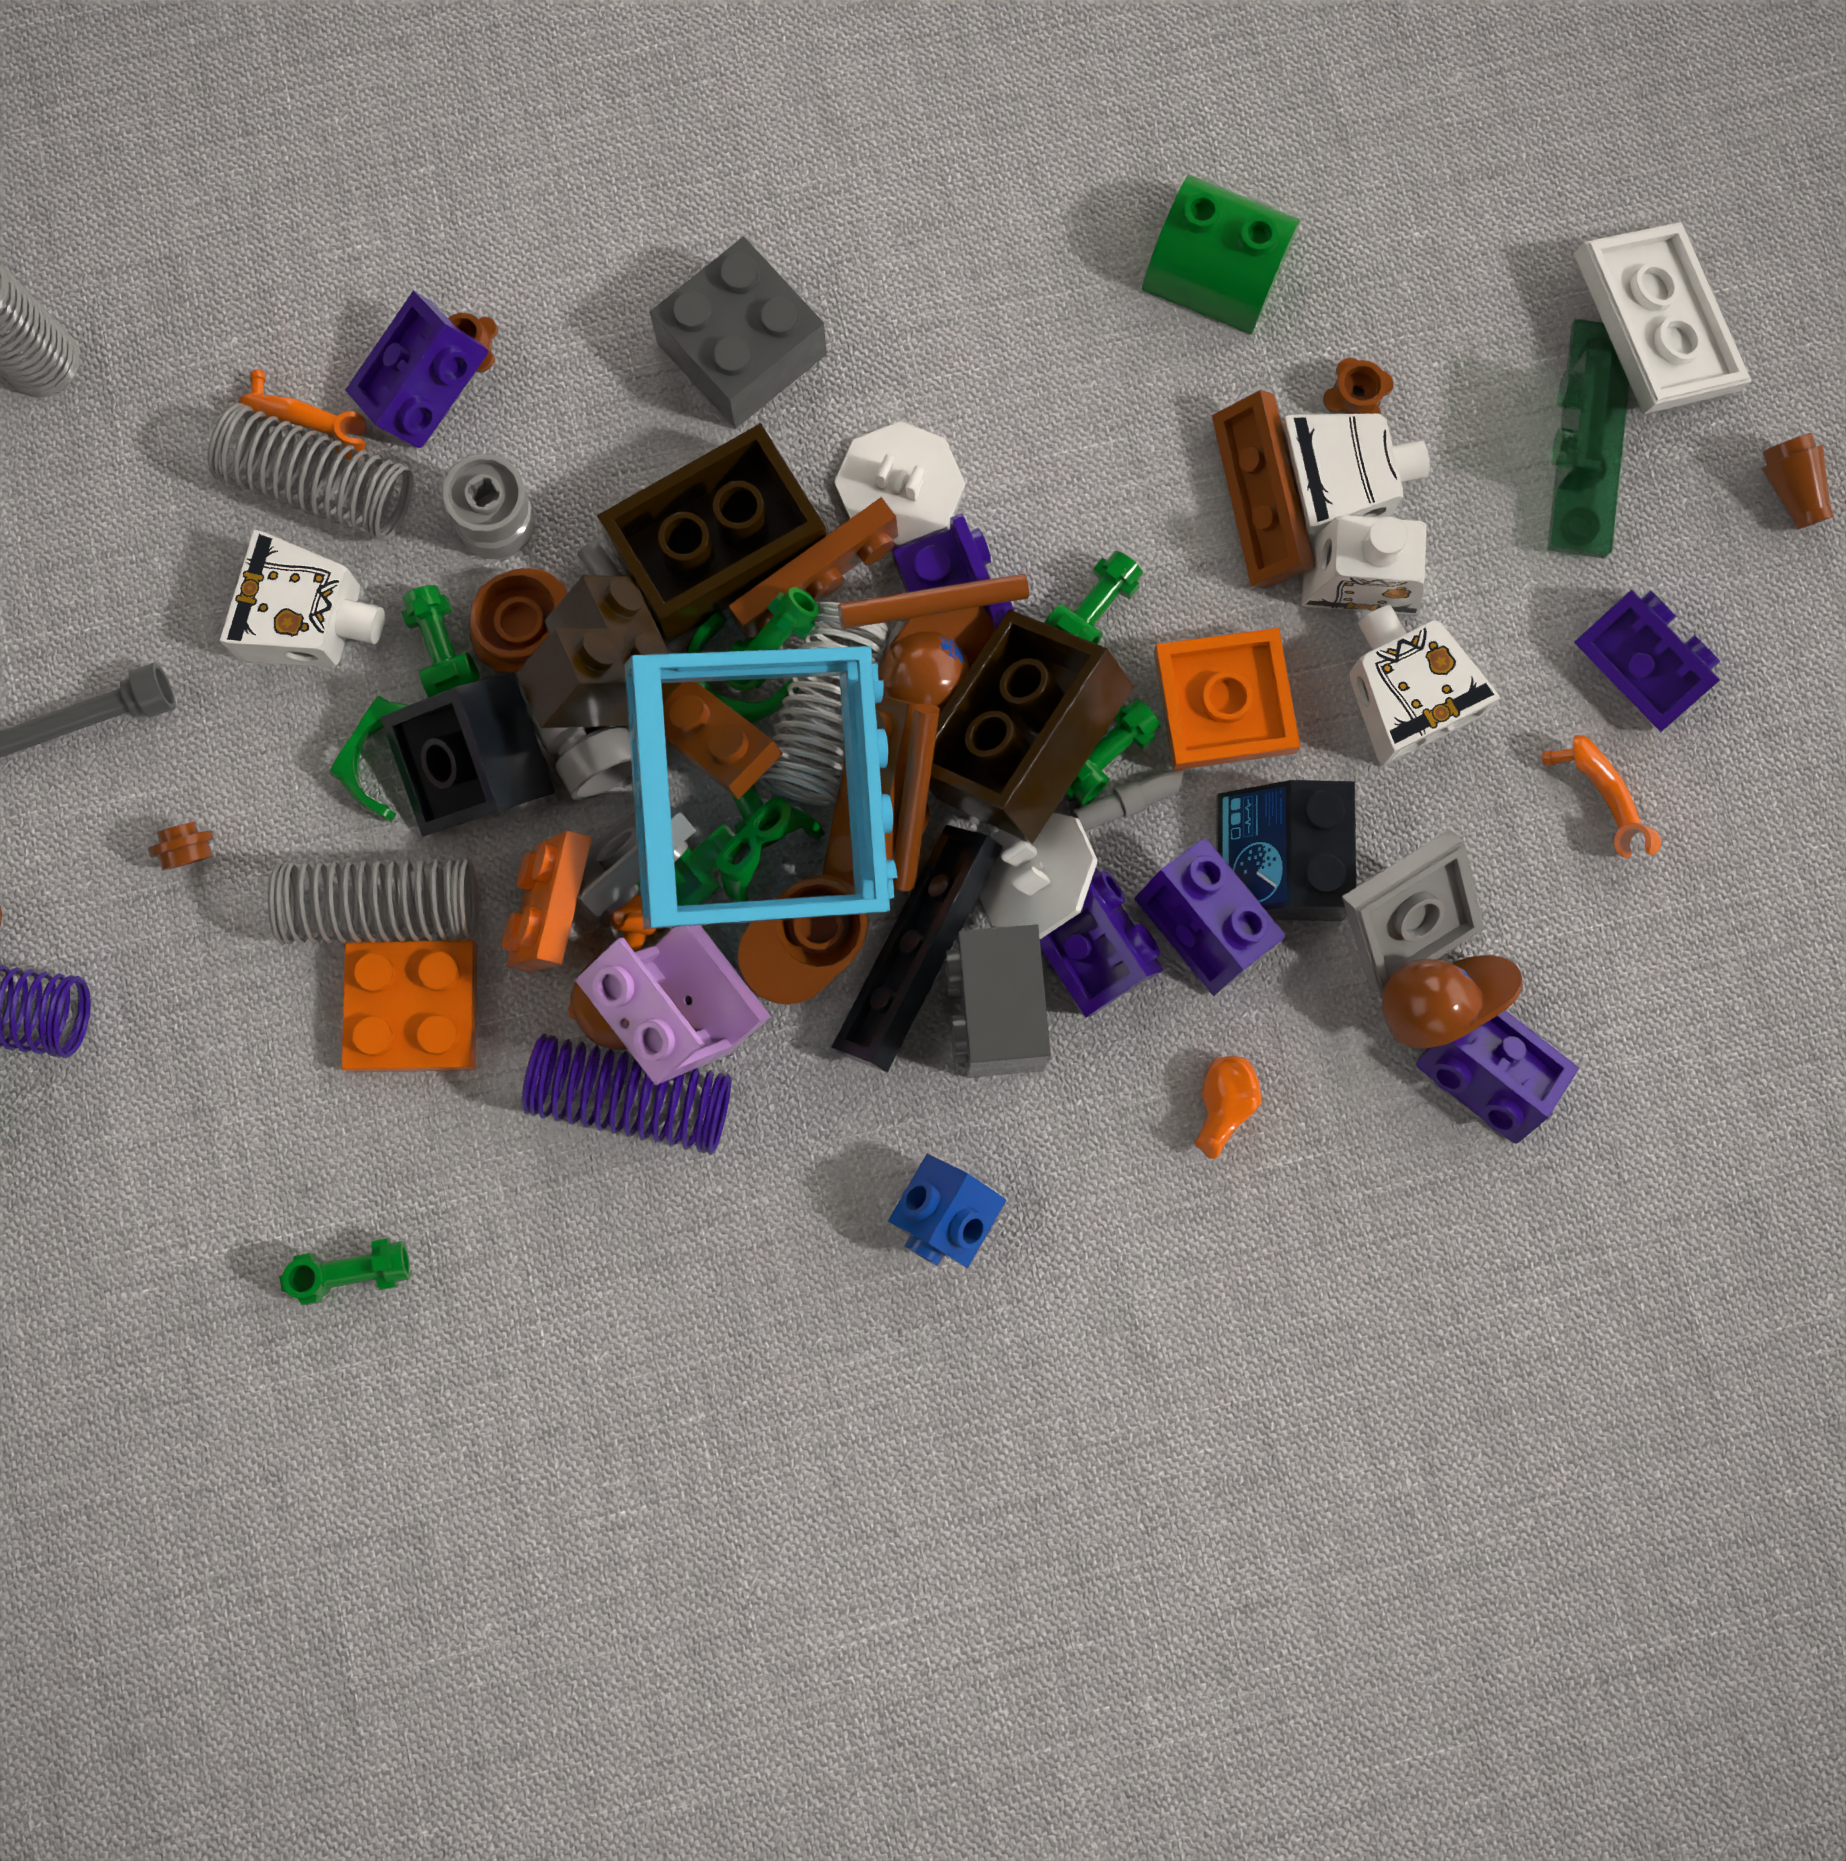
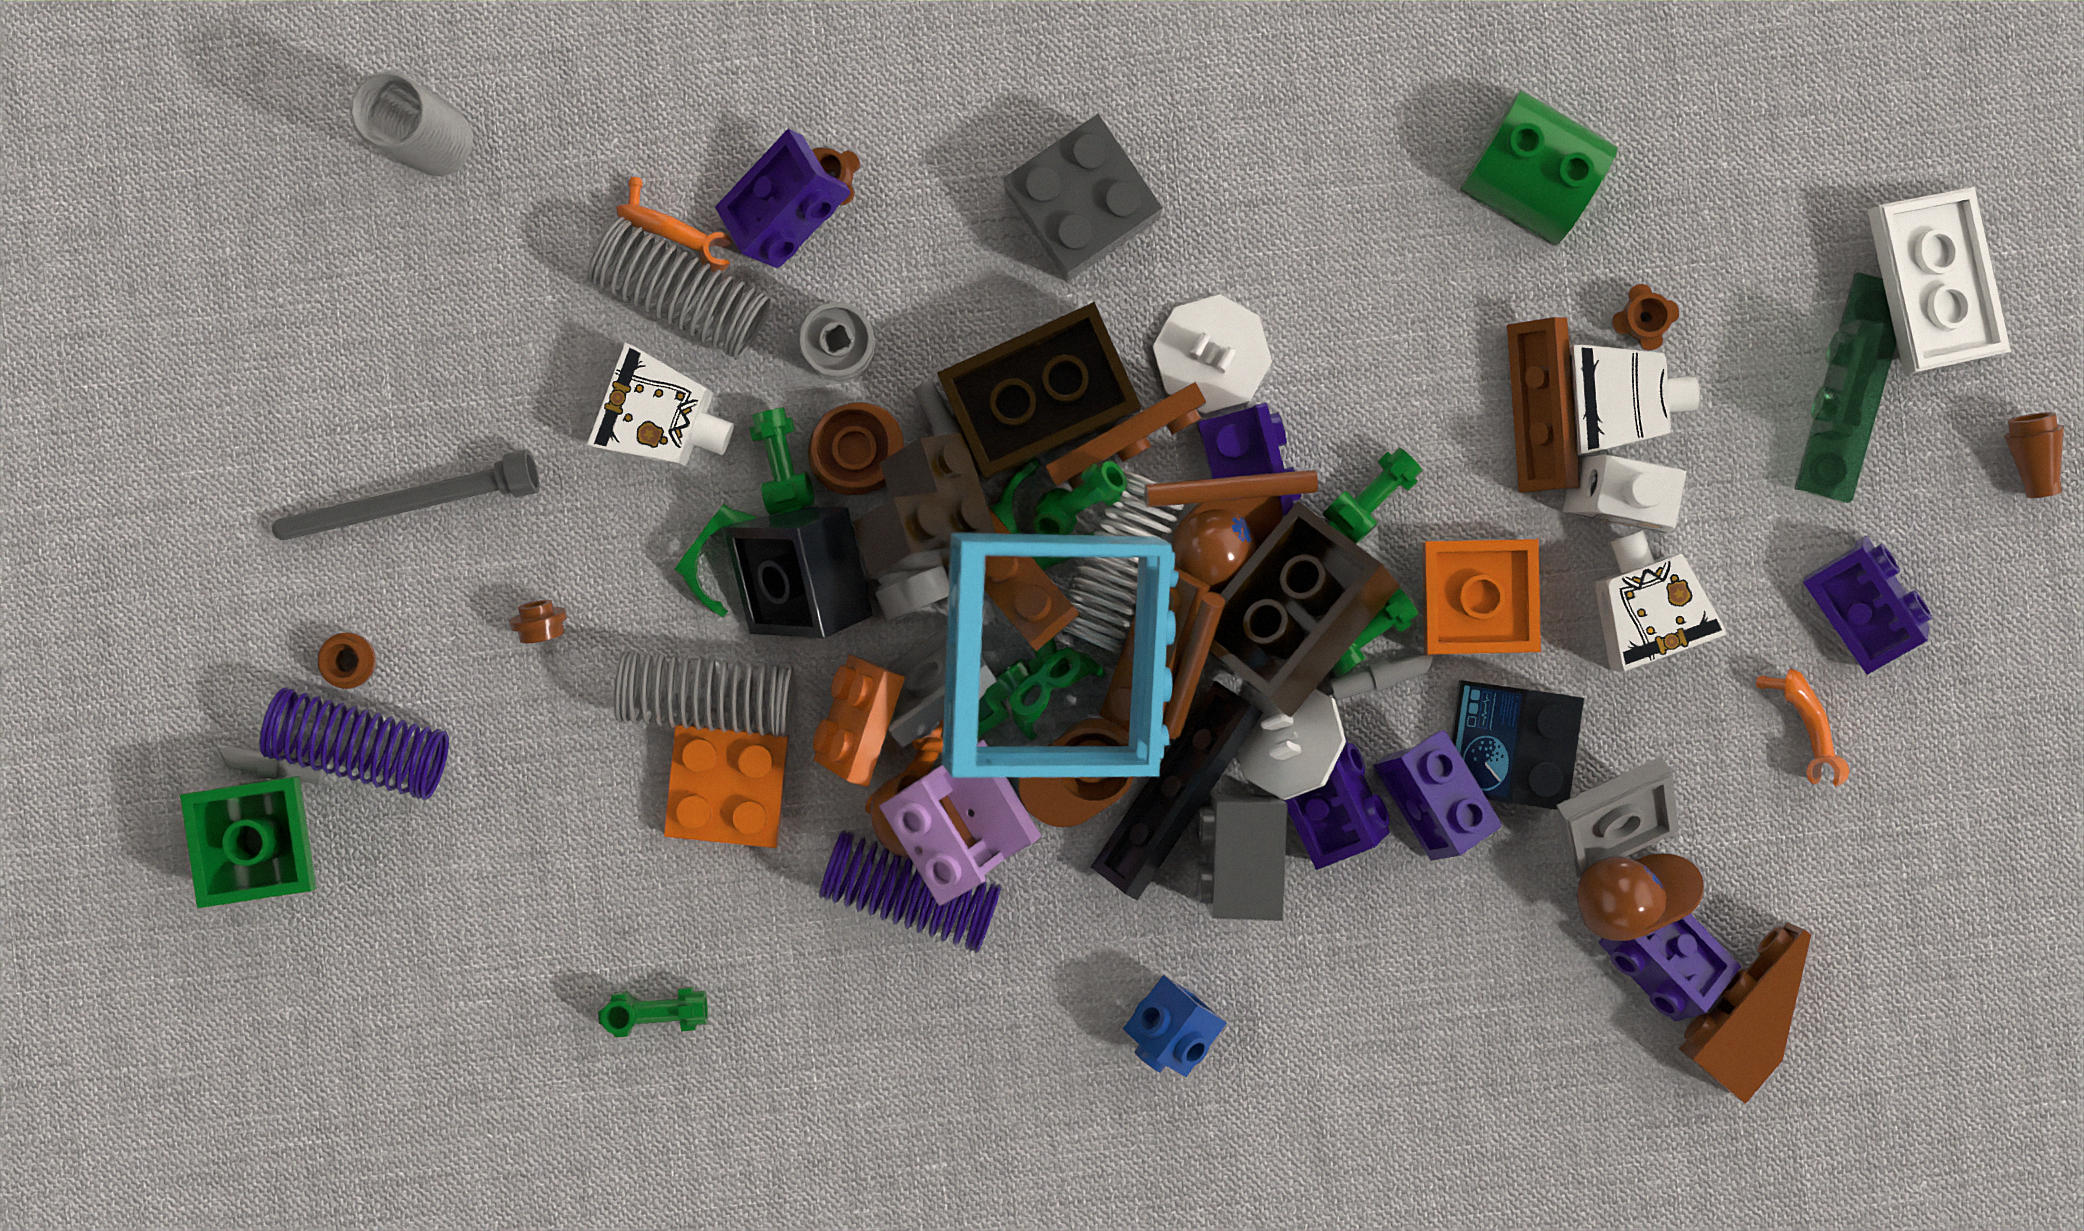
camera: 15 degrees right, 10 degrees up
(1230, 1098) = (1432, 954): orange animal -> none
(1603, 1131) = (1751, 1024): none -> dark orange slope

